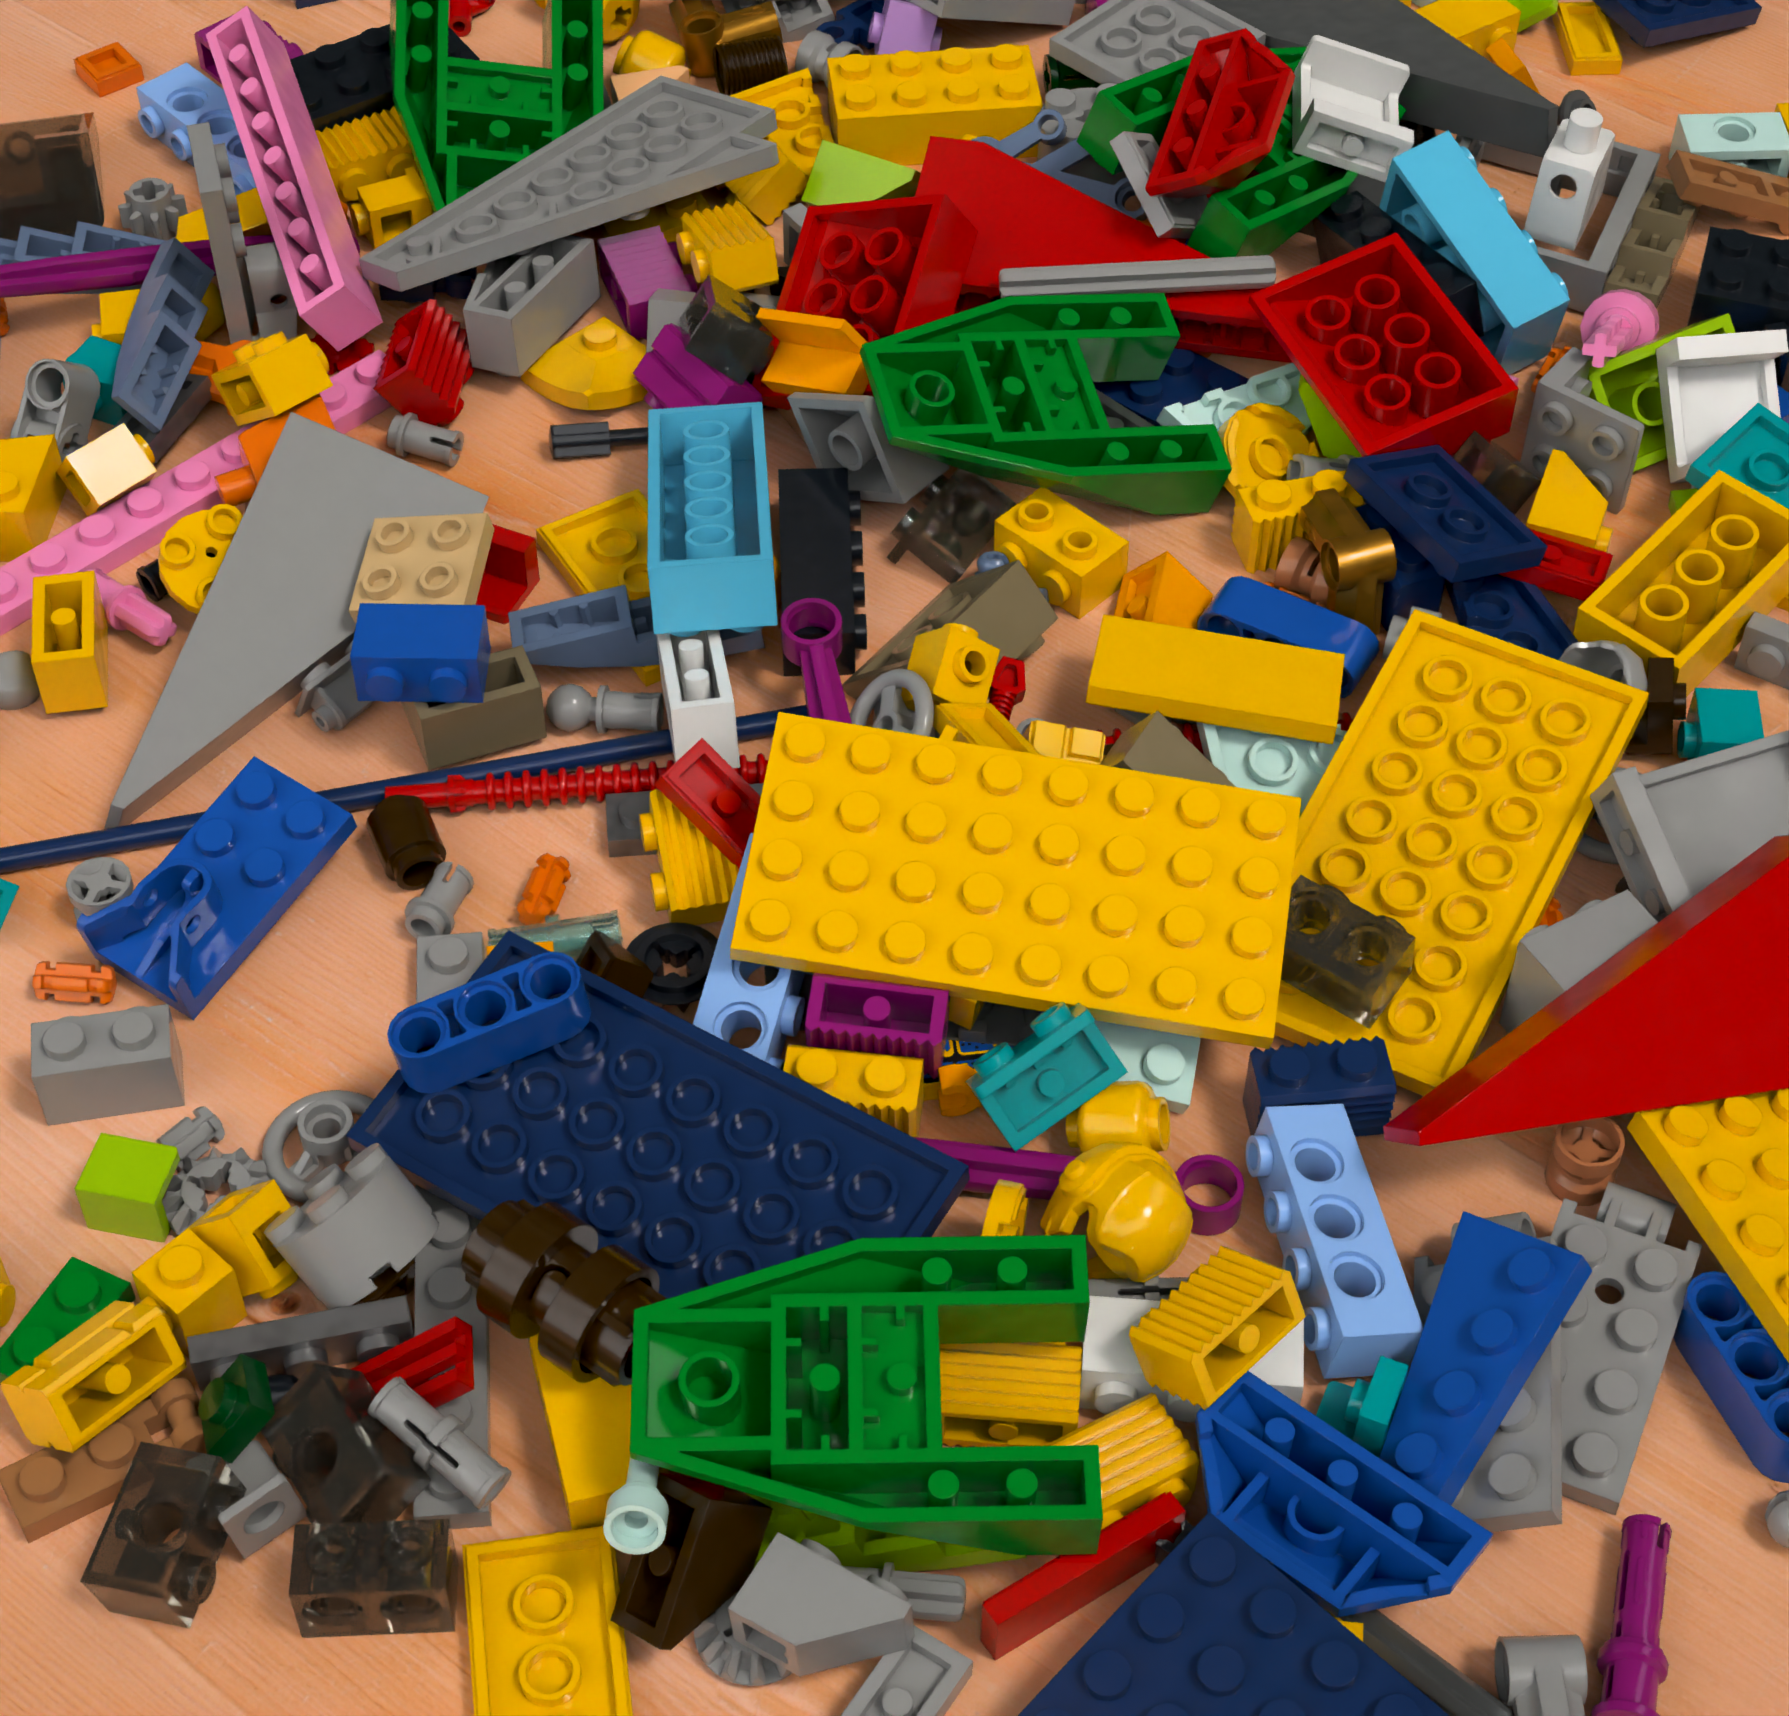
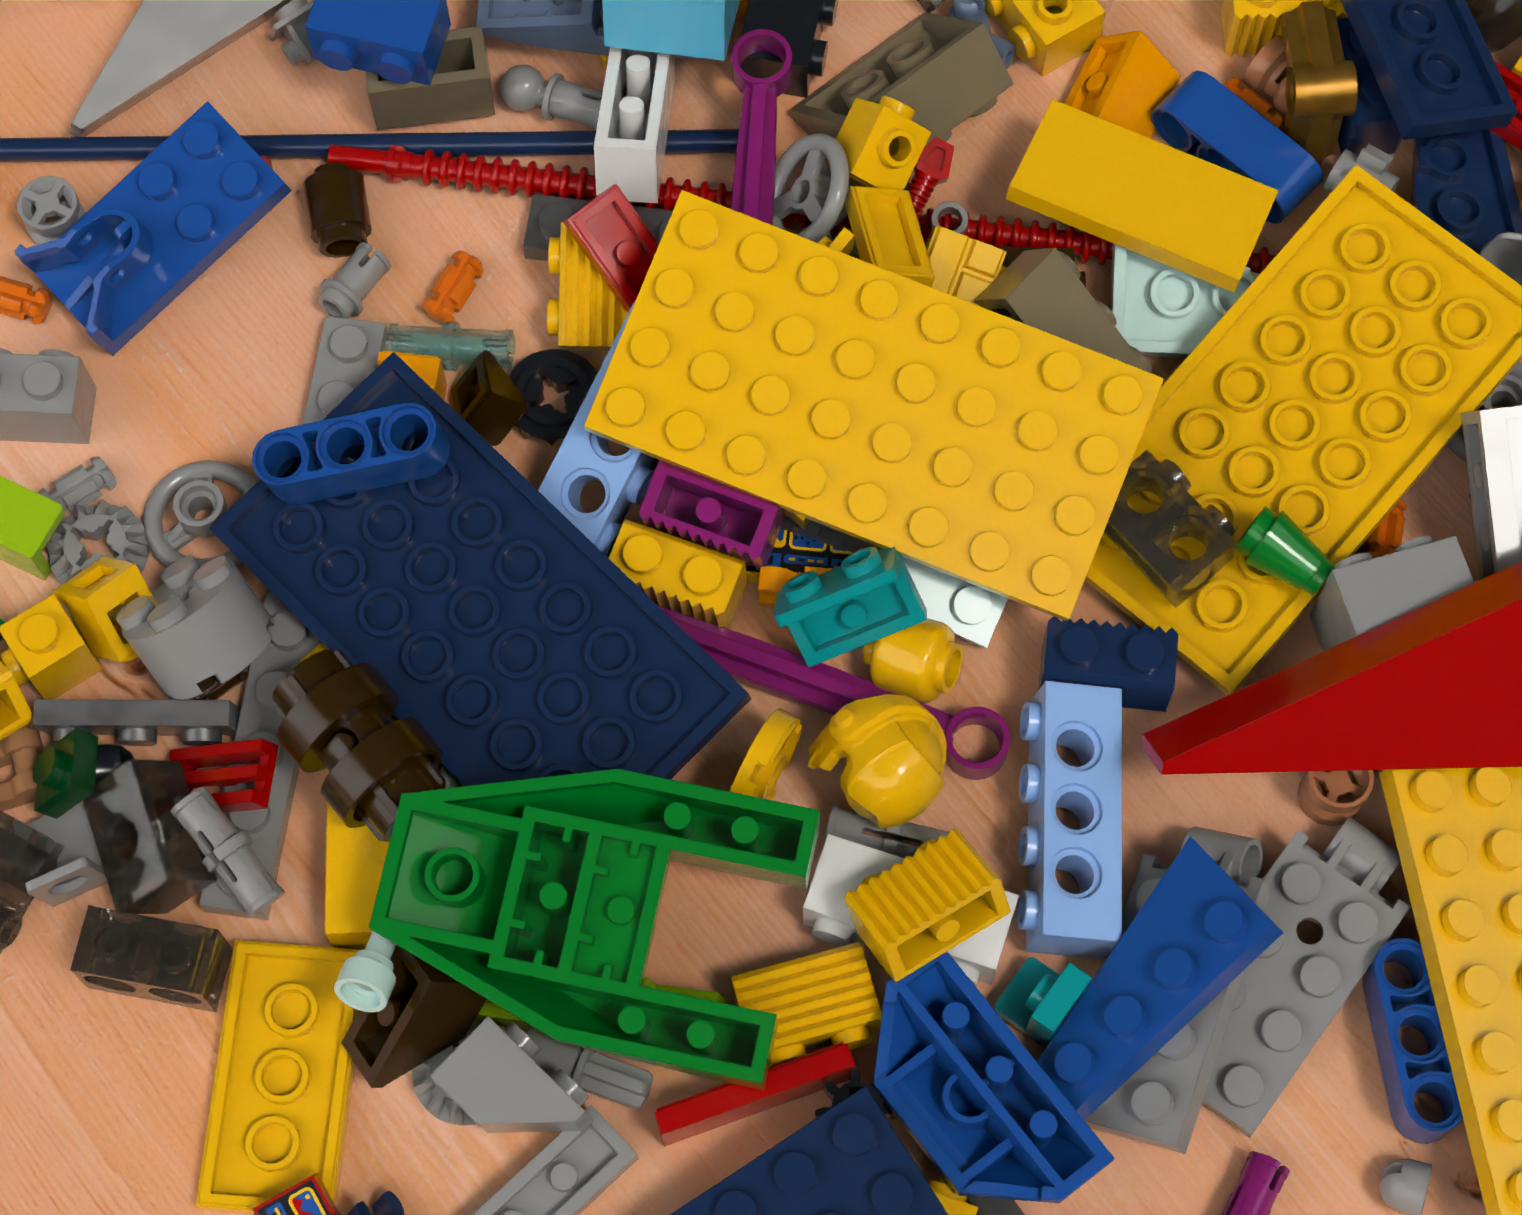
camera: 15 degrees right, 20 degrees up
(1009, 1393) = (734, 912): yellow brick -> none
(1463, 946) = (1284, 551): none -> green cone

